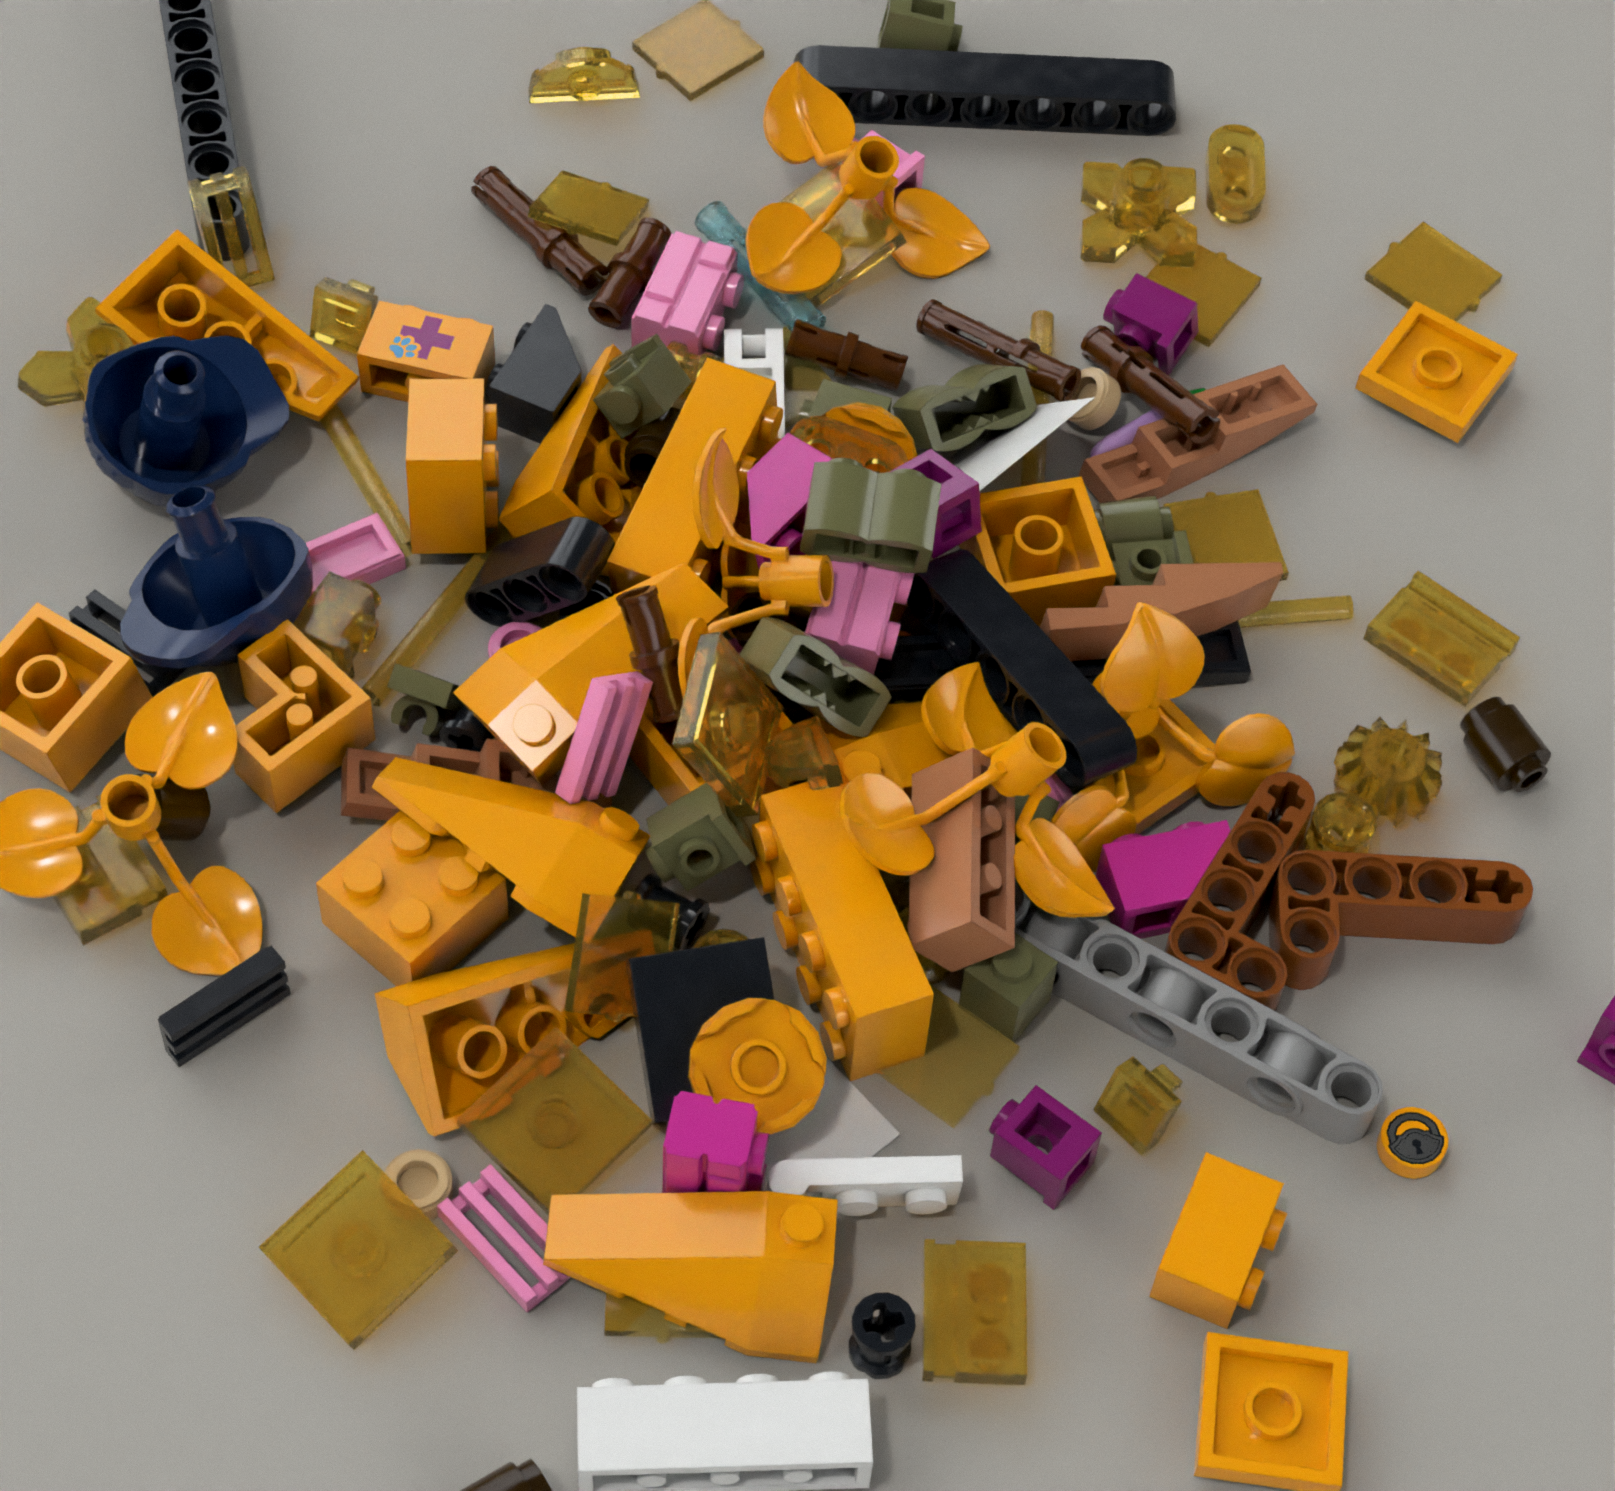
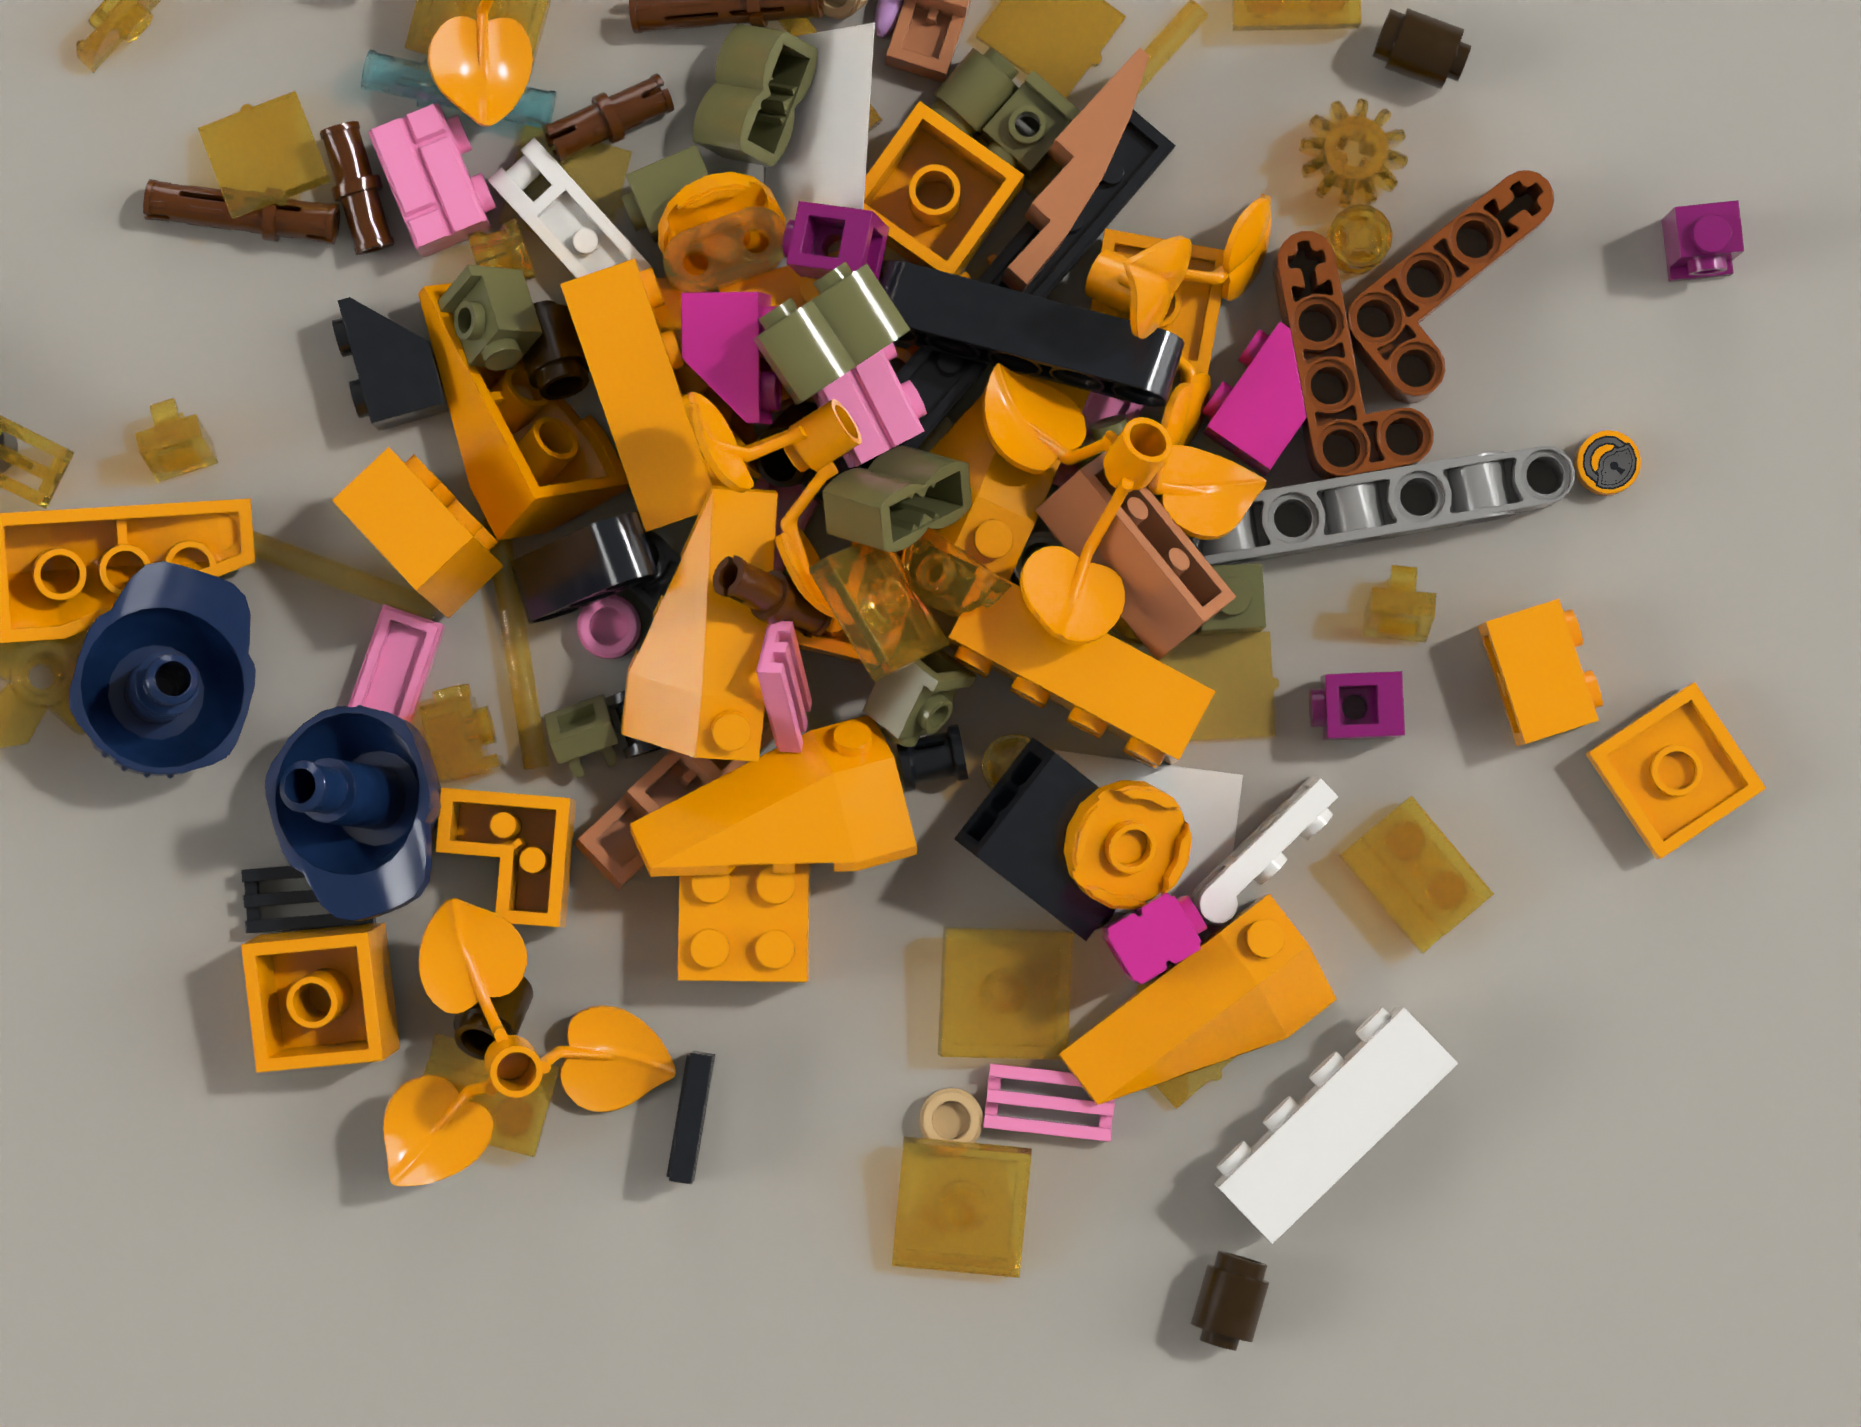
camera: 40 degrees left, 30 degrees up
(421, 345) = (280, 425): light orange brick -> none
(472, 1024) = (883, 969): light orange wedge -> none
(606, 937) = (929, 832): clear yellow piece -> none
(896, 1323) = (1390, 947): black bush -> none

